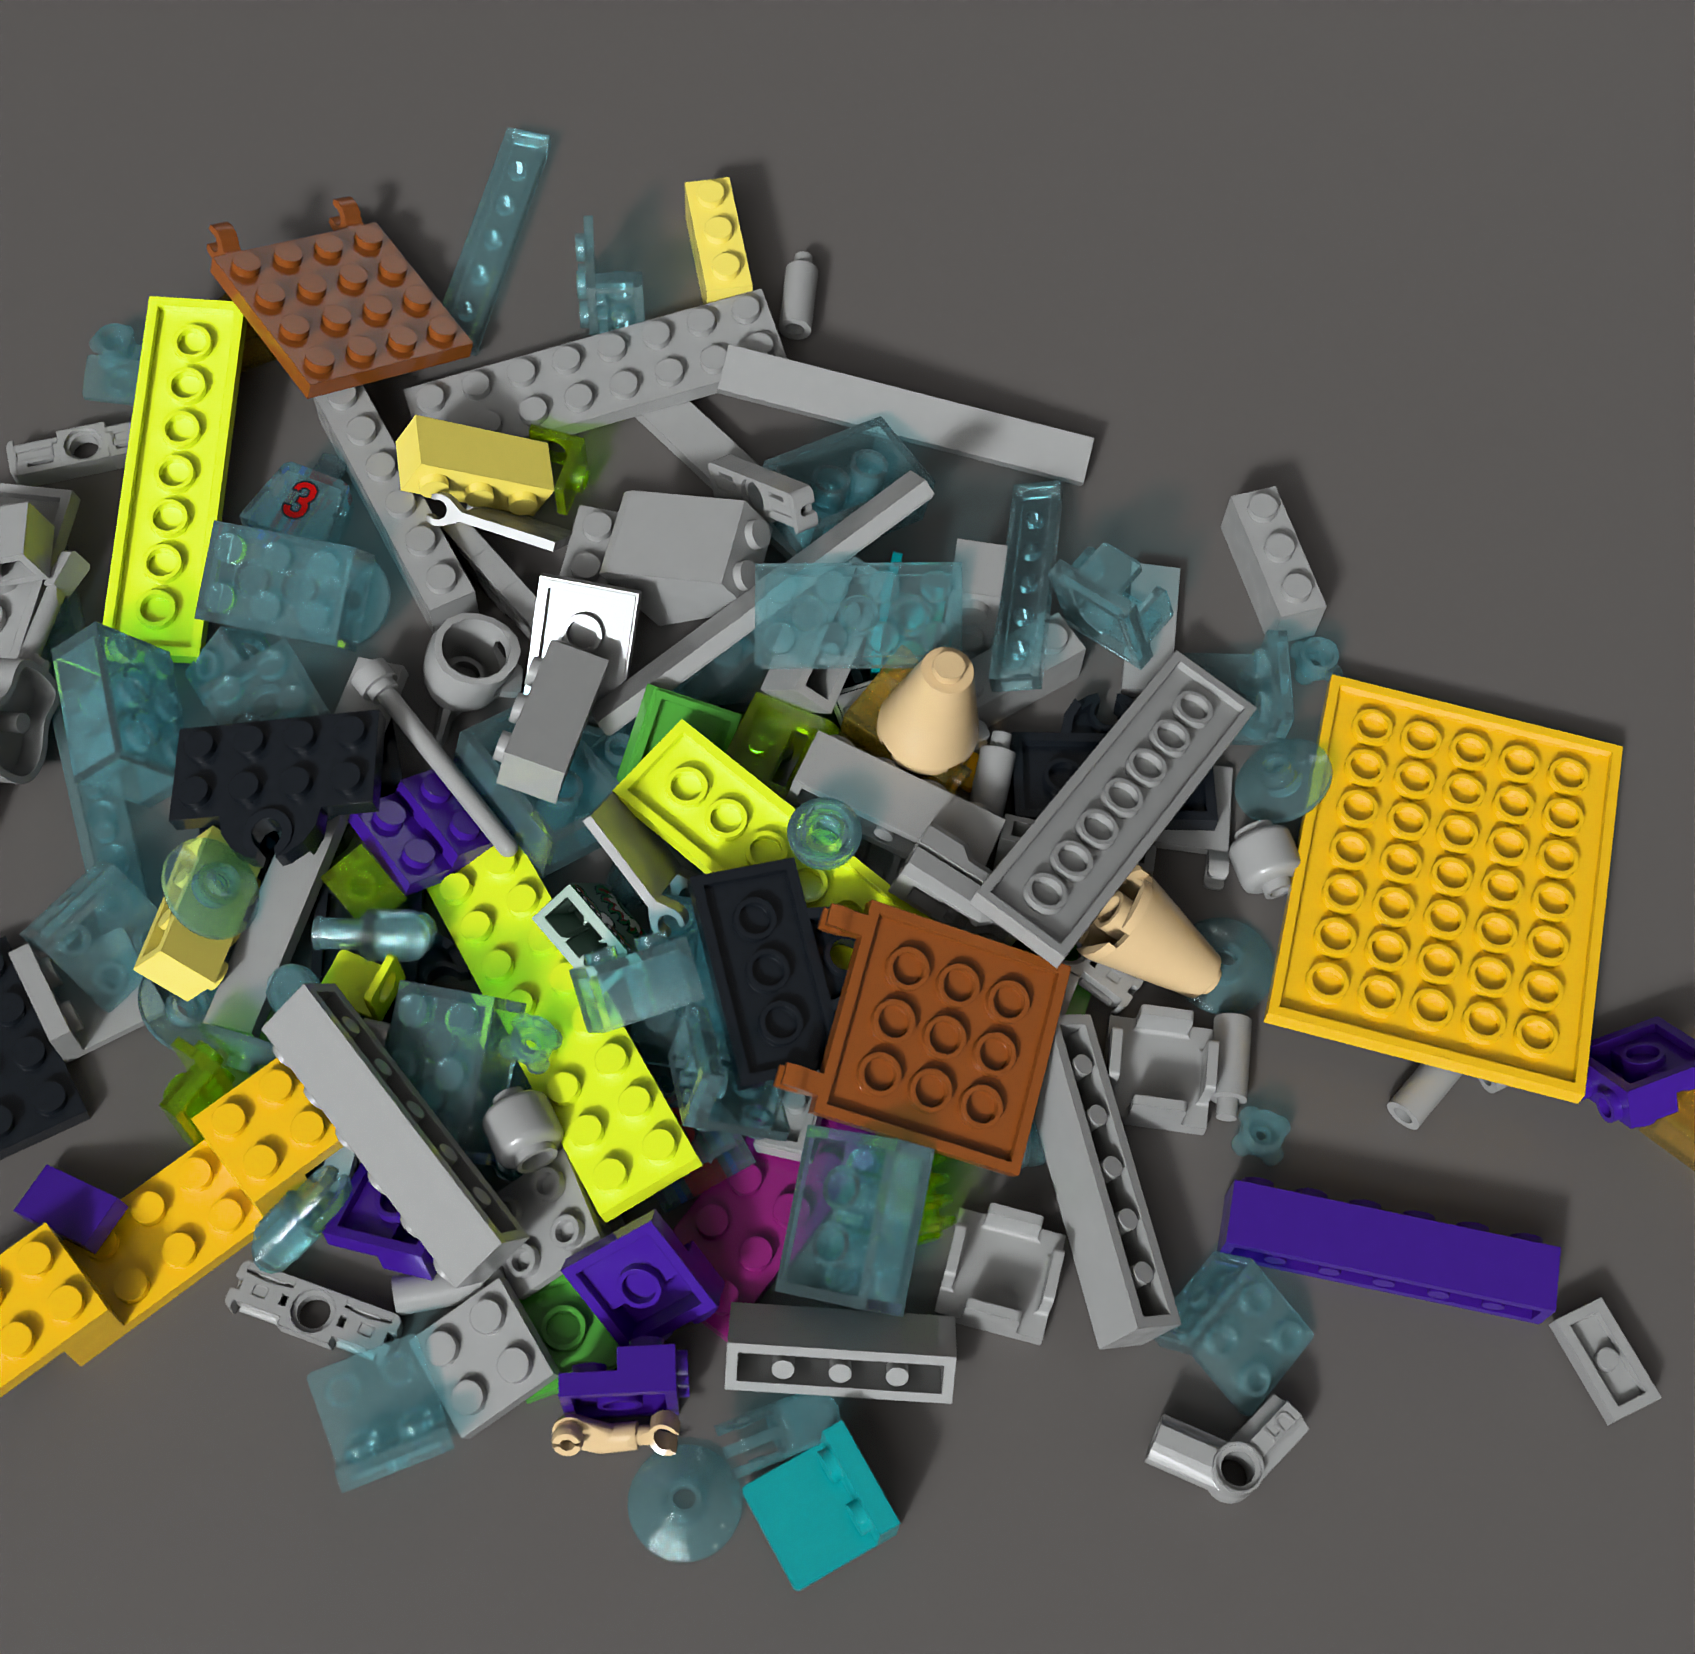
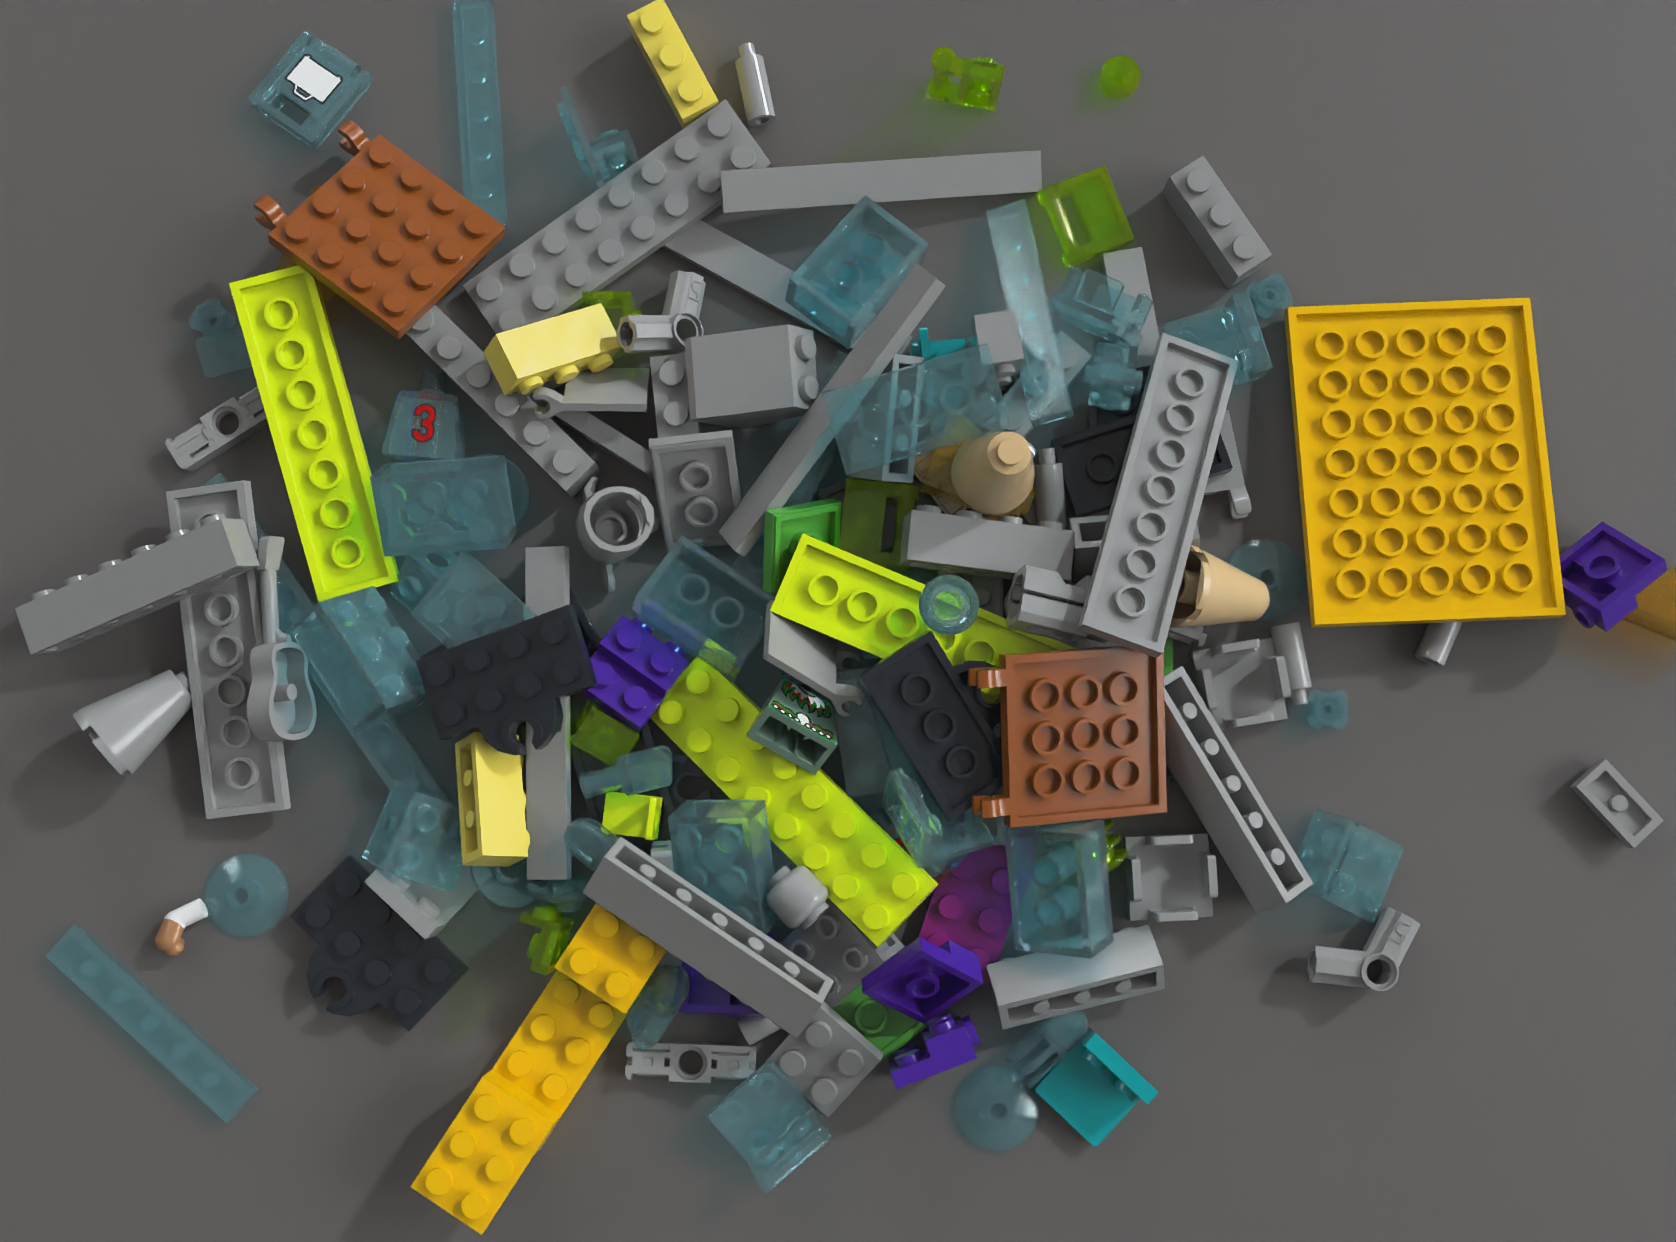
camera: 10 degrees left, 20 degrees up
(71, 1208) = (489, 1047): dark purple tile -> none
(197, 897) = (484, 794): clear light blue dish -> none
(329, 159) = (315, 81): none -> clear light blue container
(378, 683) = (554, 573): light grey piece -> none
(537, 1030) = (789, 824): clear light blue plate -> none
(549, 720) = (701, 566): light grey brick -> none
(578, 1432) = (906, 1097): tan arm -> none
(604, 488) = (678, 321): none -> light grey piece
(636, 983) = (846, 768): clear light blue brick -> none
(765, 490) = (795, 303): light grey piece -> none
(1045, 346) = (979, 79): none -> clear neon green plate
(1103, 678) = (1112, 376): none -> clear light blue brick
(1140, 515) = (1097, 210): none -> clear neon green plate
(1206, 401) = (1120, 77): none -> clear neon green tile
(1264, 858) = (1276, 487): light grey head -> none
(1283, 780) = (1286, 424): clear light blue dish -> none
(1390, 1250) = (1444, 772): dark purple brick -> none

